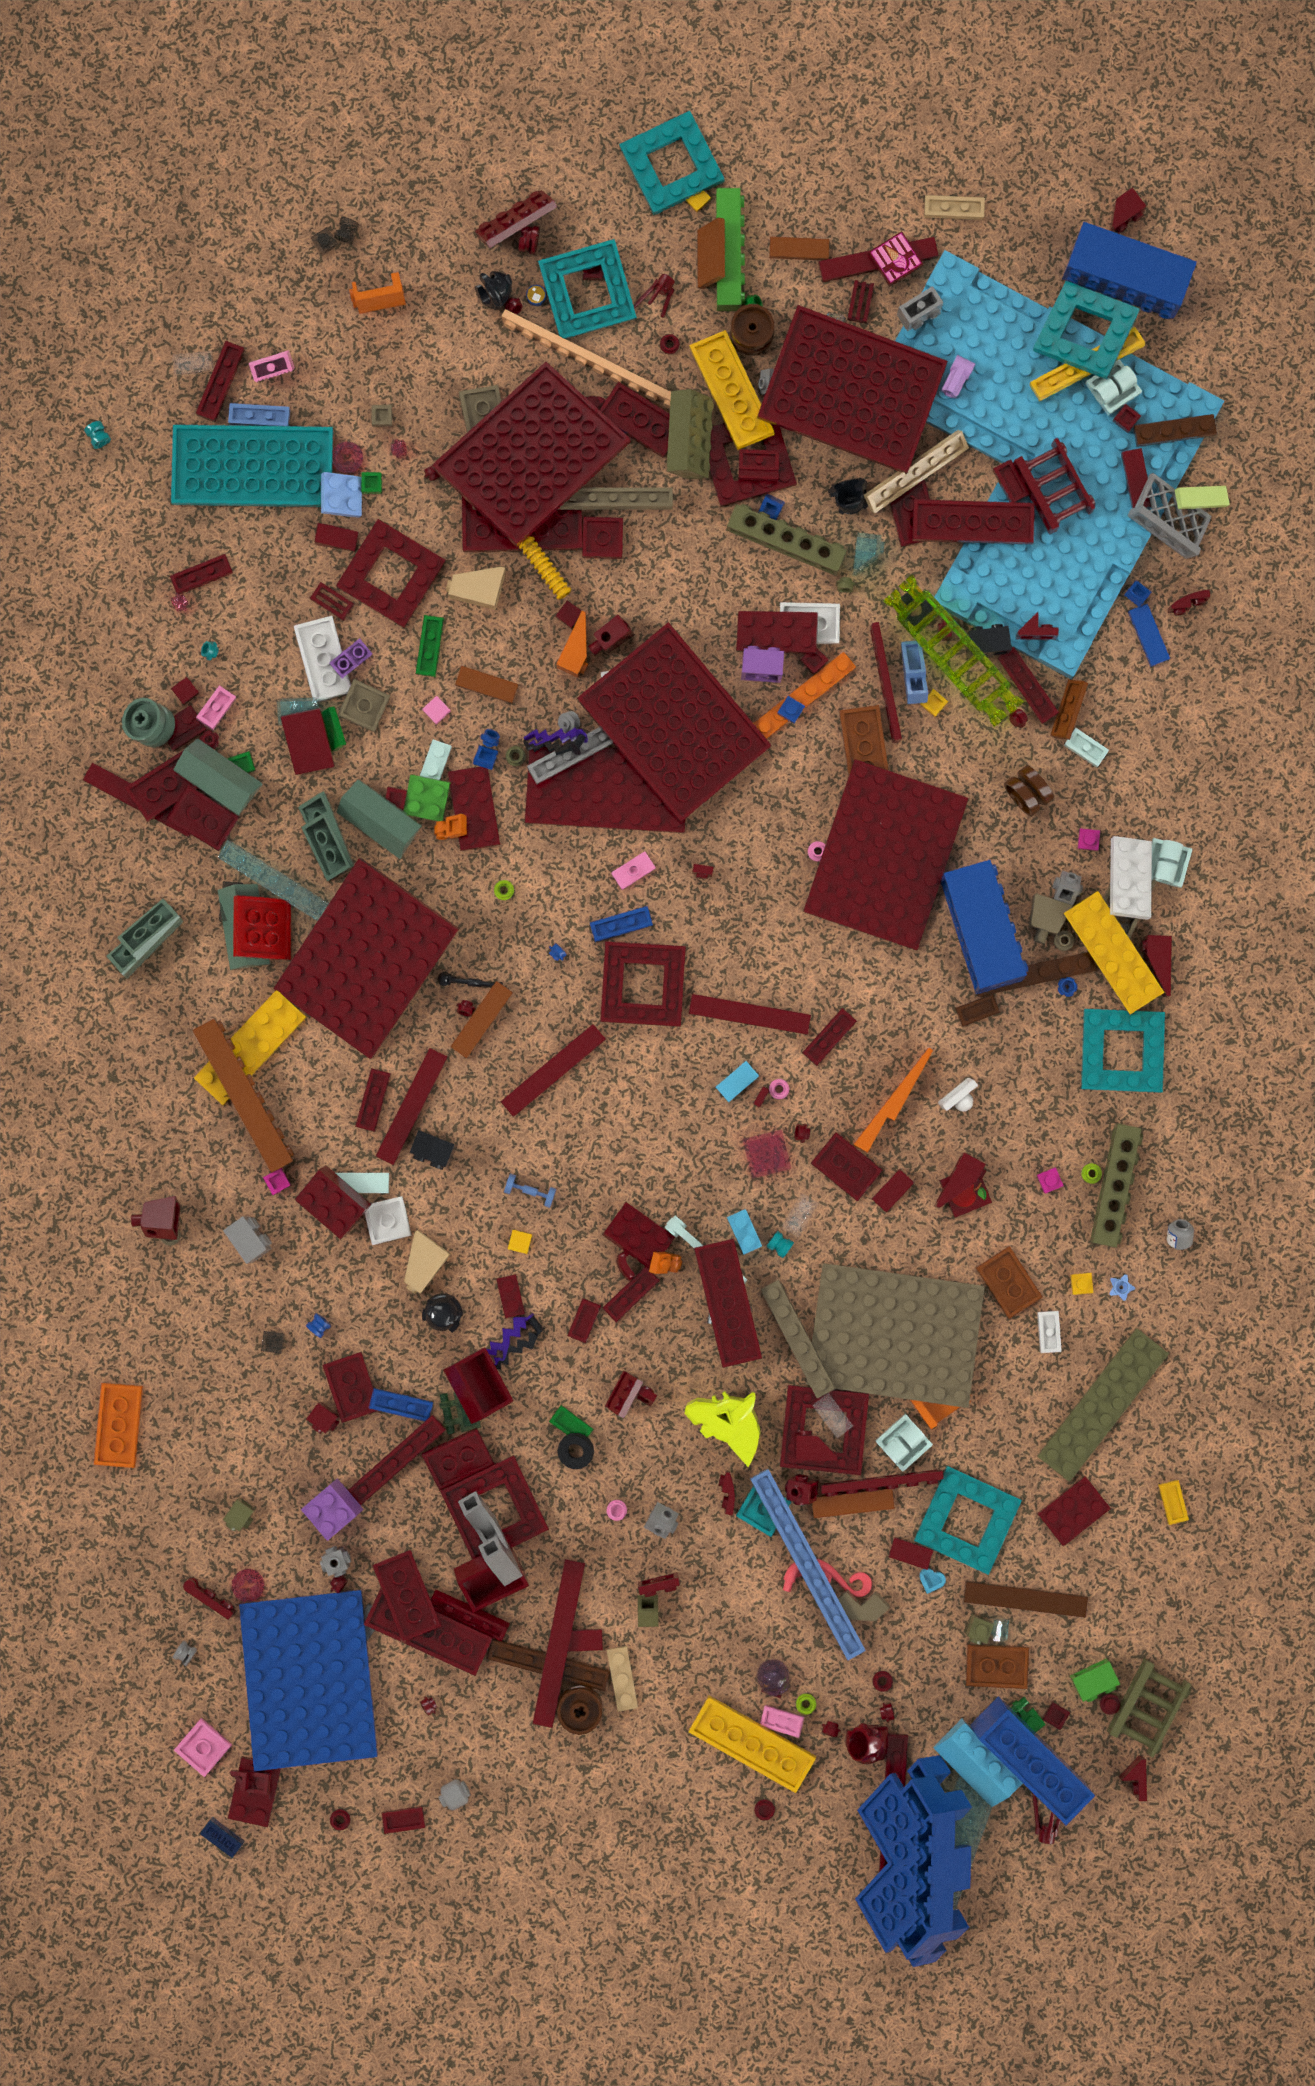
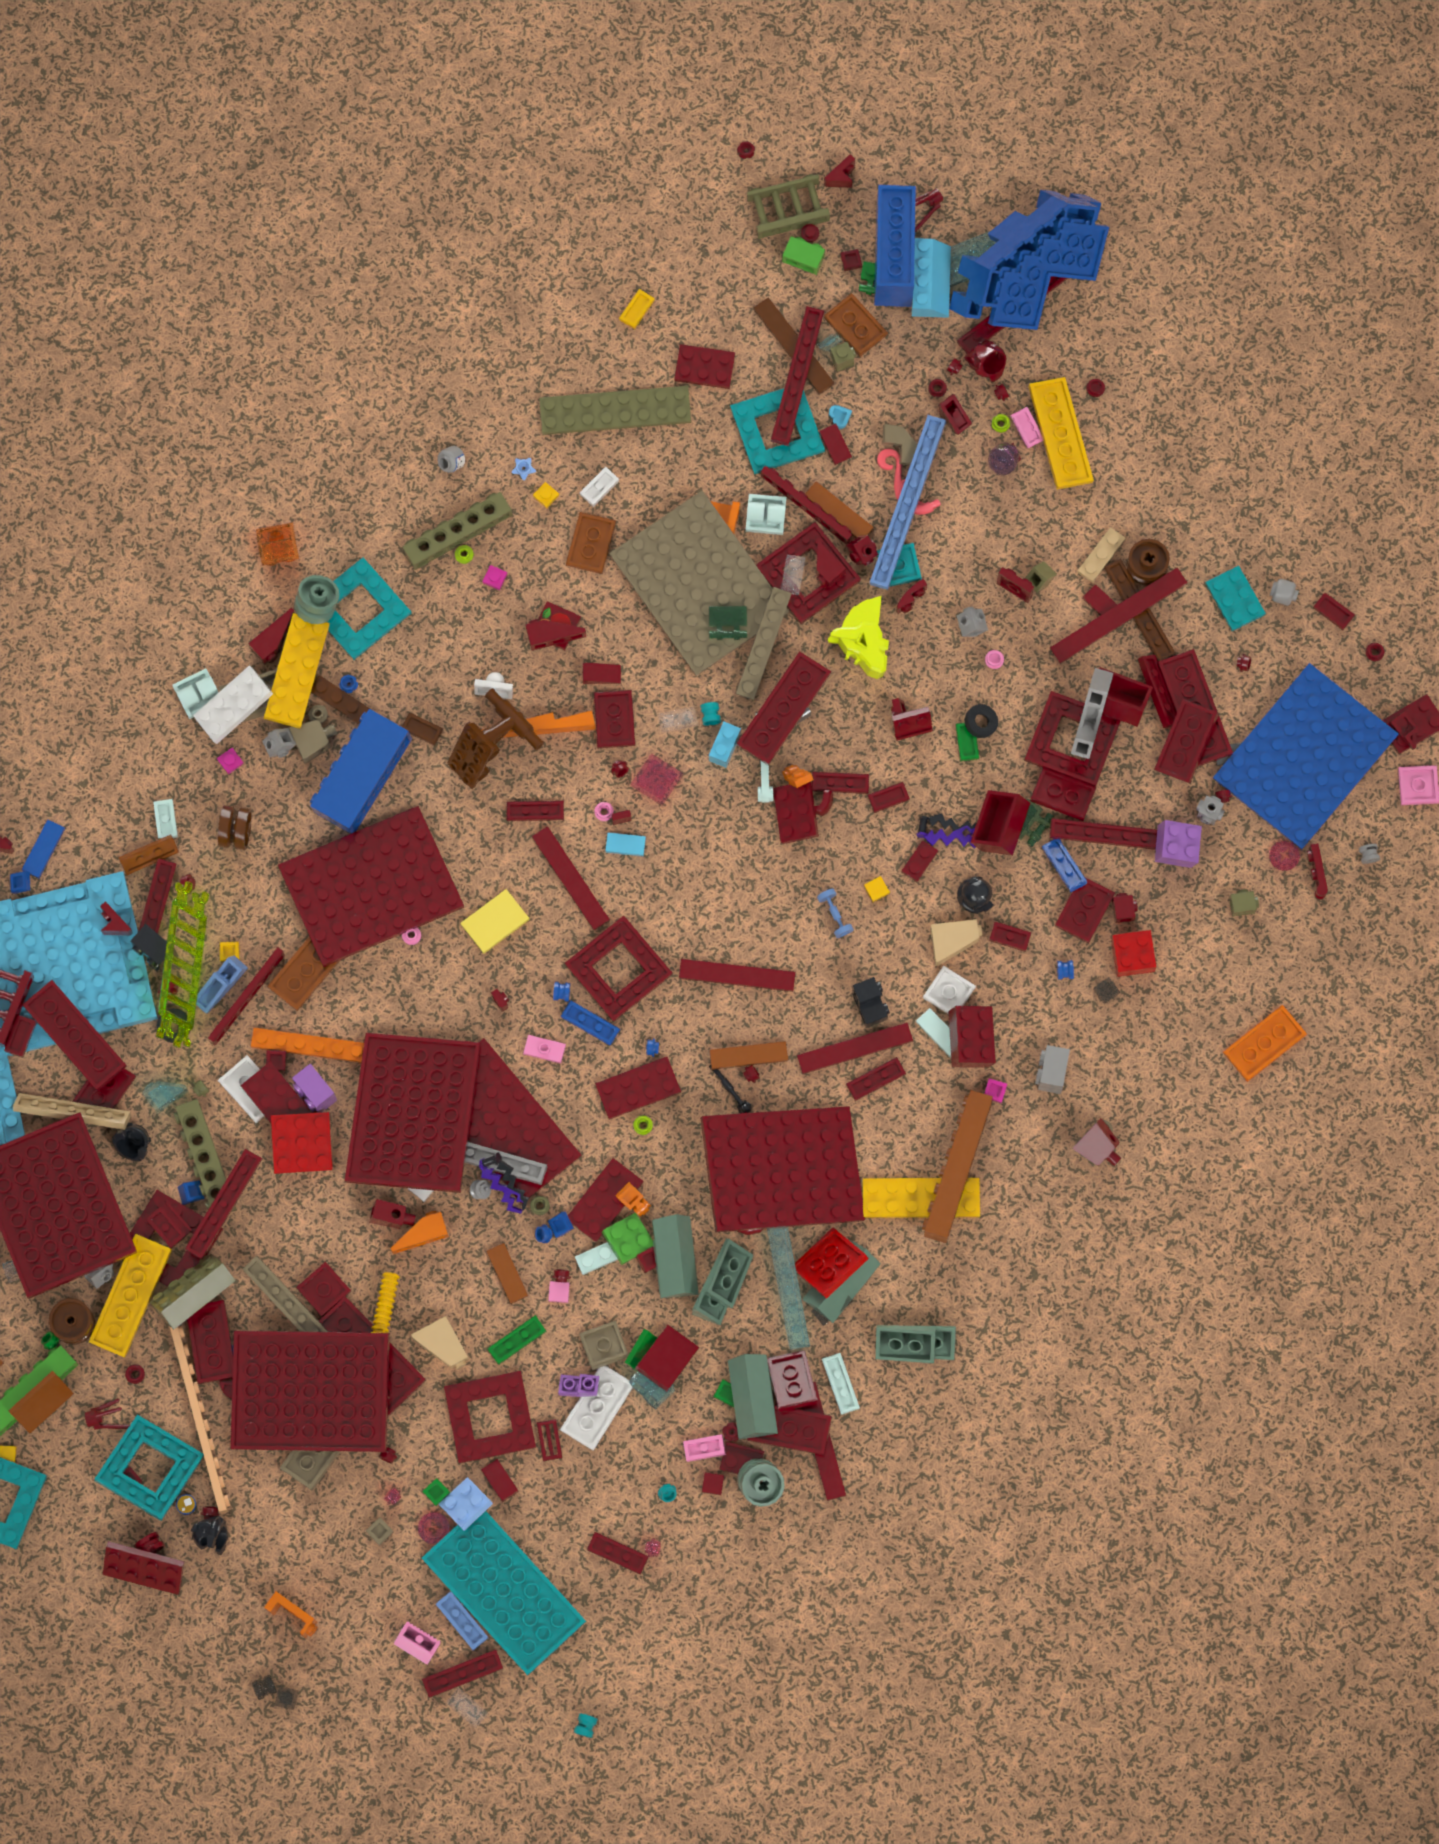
camera: 130 degrees left, 10 degrees down
(169, 854) = (840, 1383): none -> light aqua tile
(280, 1390) = (1133, 953): none -> red brick
(385, 1308) = (1010, 936): none -> dark red plate
(446, 722) = (561, 1275): none -> dark red plate
(487, 1751) = (1235, 598): none -> teal plate
(536, 913) = (638, 1088): none -> dark red plate
(568, 614) = (401, 1262): dark red tile -> none
(665, 924) = (561, 991): none -> blue wheel
(730, 620) = (301, 1142): none -> red plate
(735, 516) = (223, 1204): none -> dark red plate
(769, 925) = (495, 921): none -> light yellow tile
(791, 709) = (327, 1042): blue plate -> none
(844, 1330) = (727, 616): none -> clear green plate
(846, 1672) = (954, 414): none -> dark red slope
(916, 1028) = (479, 746): none -> reddish brown plate
(996, 1577) = (797, 376): none -> dark red tile
(1158, 1019) = (316, 599): none -> sand green wheel
(1234, 1723) = (746, 145): none -> dark red plate
(1235, 1034) = (277, 544): none -> clear orange slope

